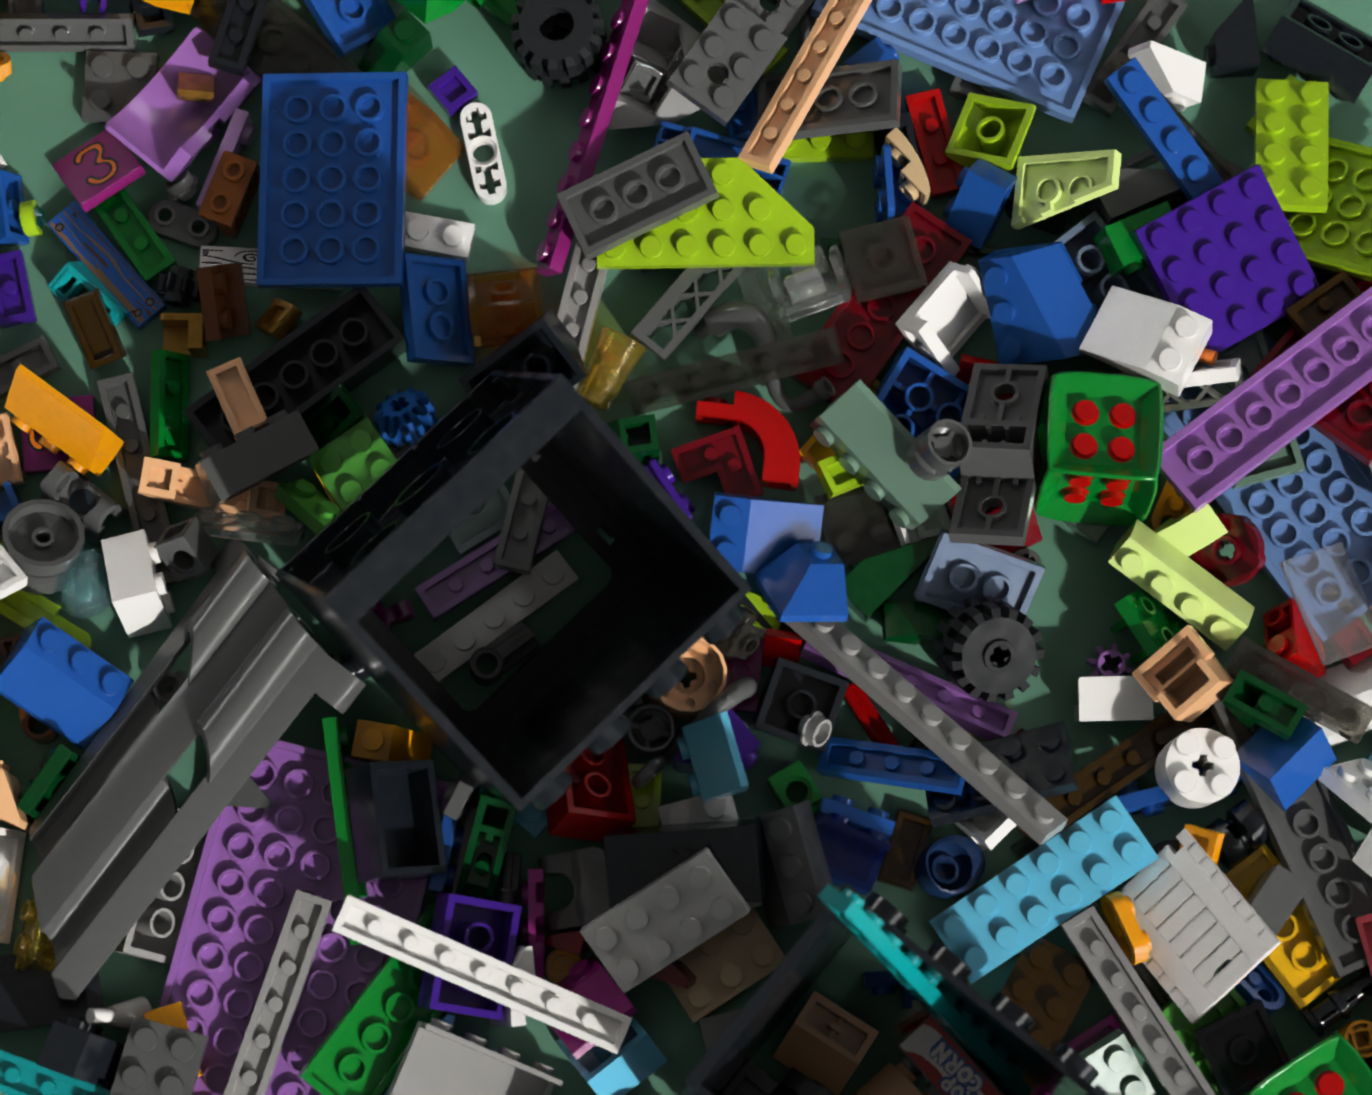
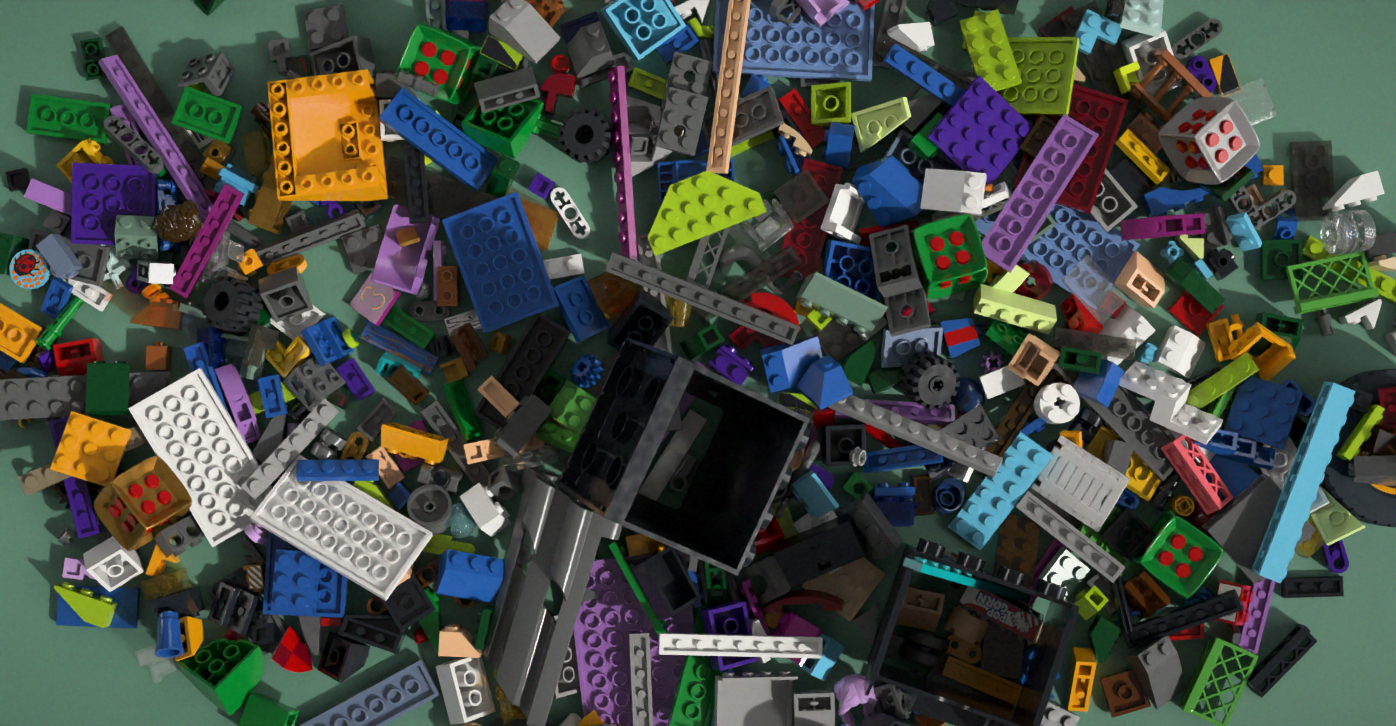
camera: 15 degrees left, 10 degrees up
(637, 195) = (662, 212): dark grey plate -> none
(650, 364) = (702, 298): none -> dark grey plate
(665, 920) = (820, 582): white plate -> none
(939, 449) = (870, 294): dark grey wheel -> none
(1046, 702) = (968, 395): none -> dark blue hat
(1072, 598) = (961, 335): none -> torso
(1121, 920) = (1043, 491): light orange plate -> none

